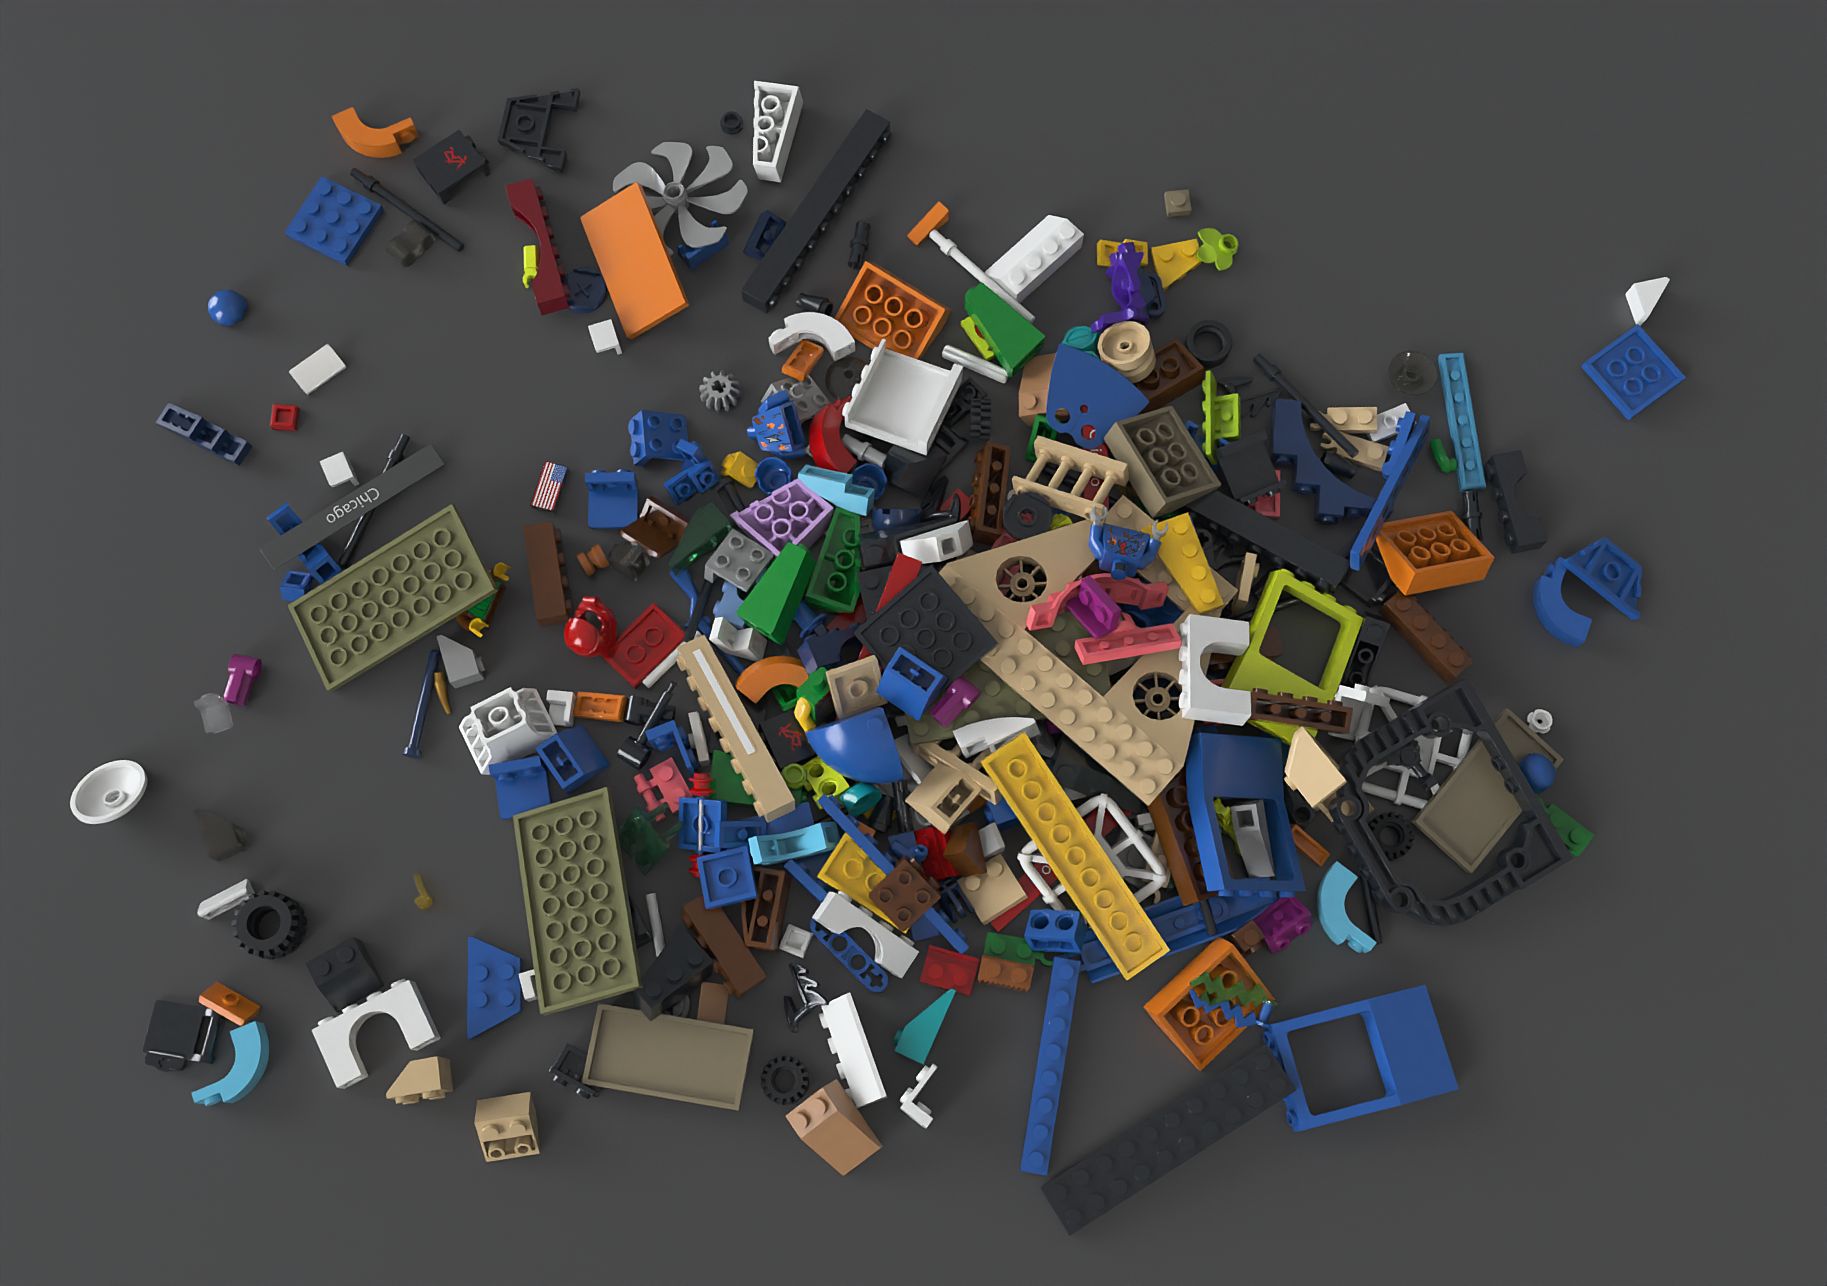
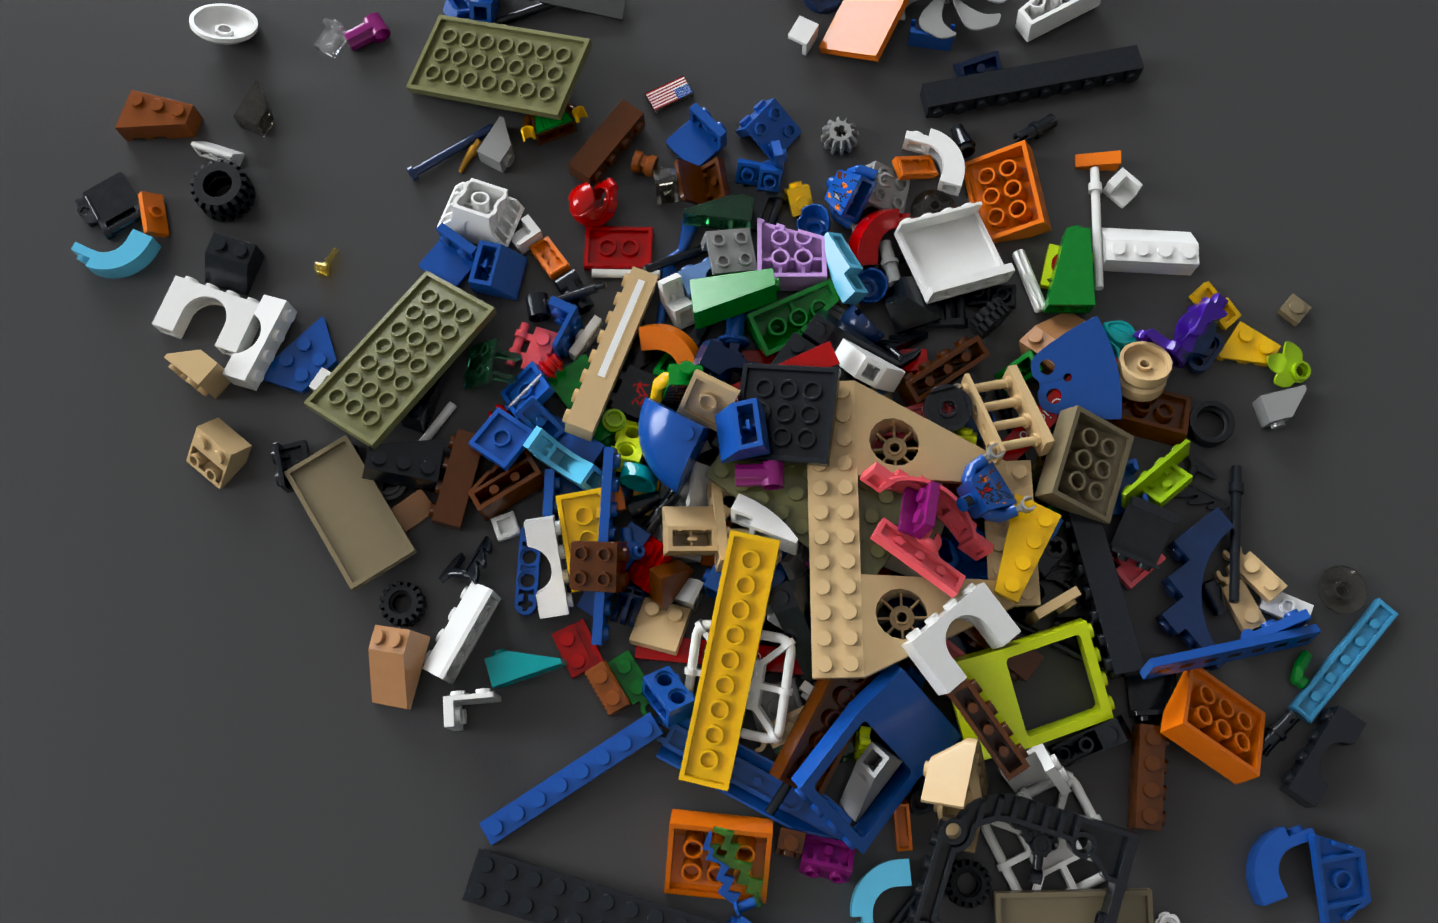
camera: 50 degrees right, 0 degrees up
(138, 925) = (157, 116): none -> dark orange wedge
(458, 1035) = (250, 366): none -> white arch
(968, 228) = (1122, 188): none -> white panel
(1241, 285) = (1278, 407): none -> light grey slope

